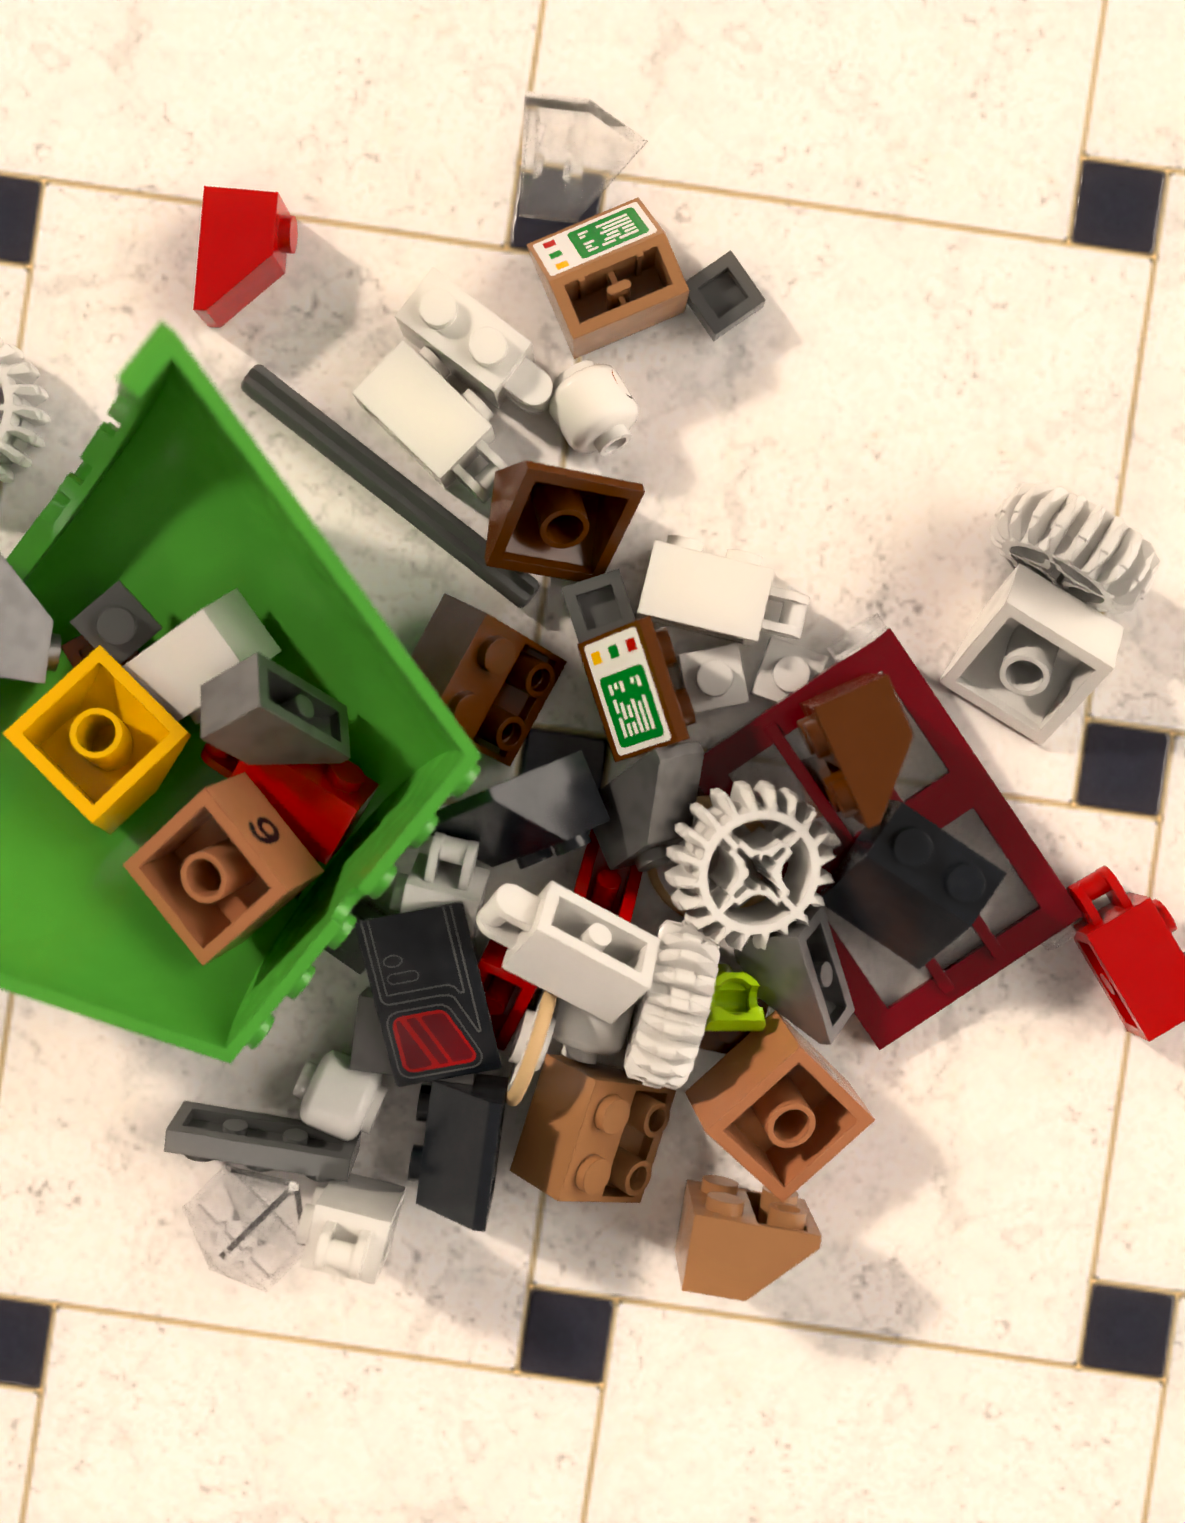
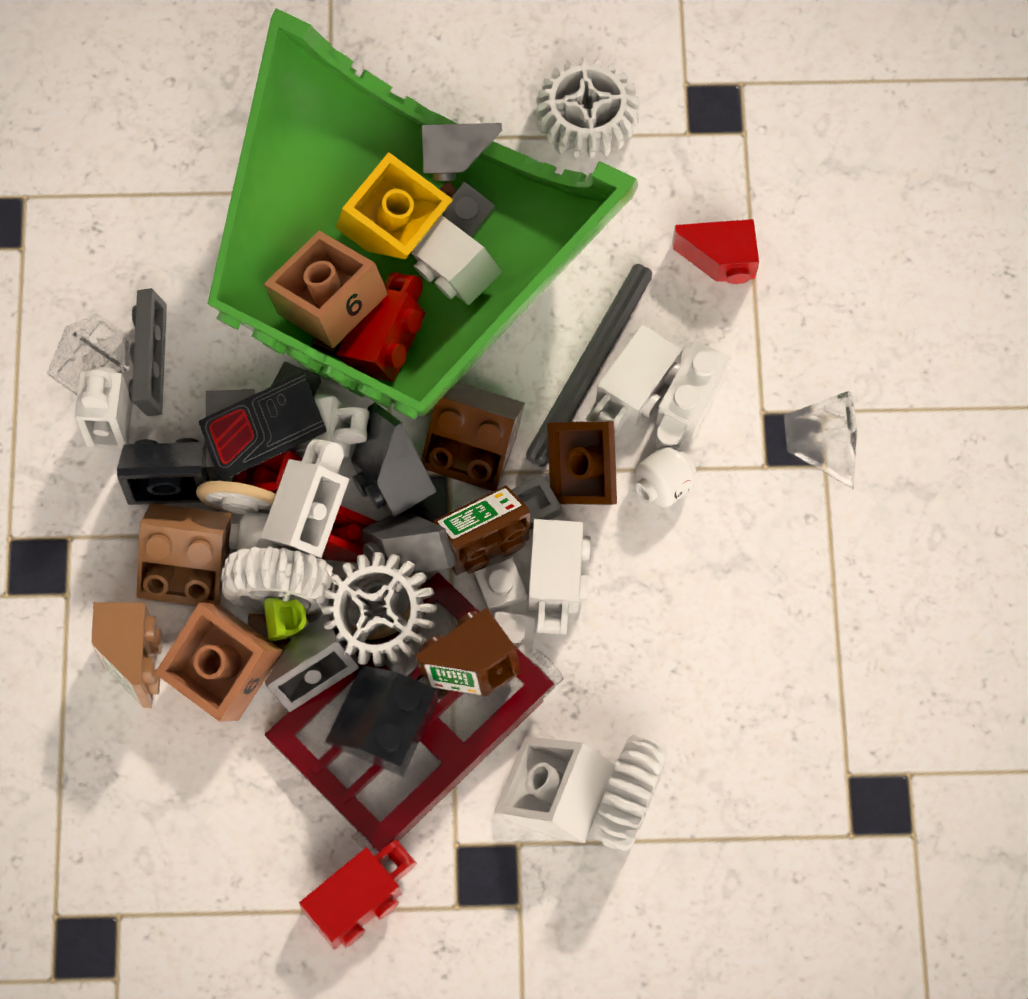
camera: 85 degrees right, 20 degrees down
(272, 716) = (425, 302): flat silver slope -> none
(339, 1098) = (184, 393): white head -> none
(609, 276) = (751, 470): medium nougat slope -> none
(723, 295) = (757, 546): dark grey plate -> none

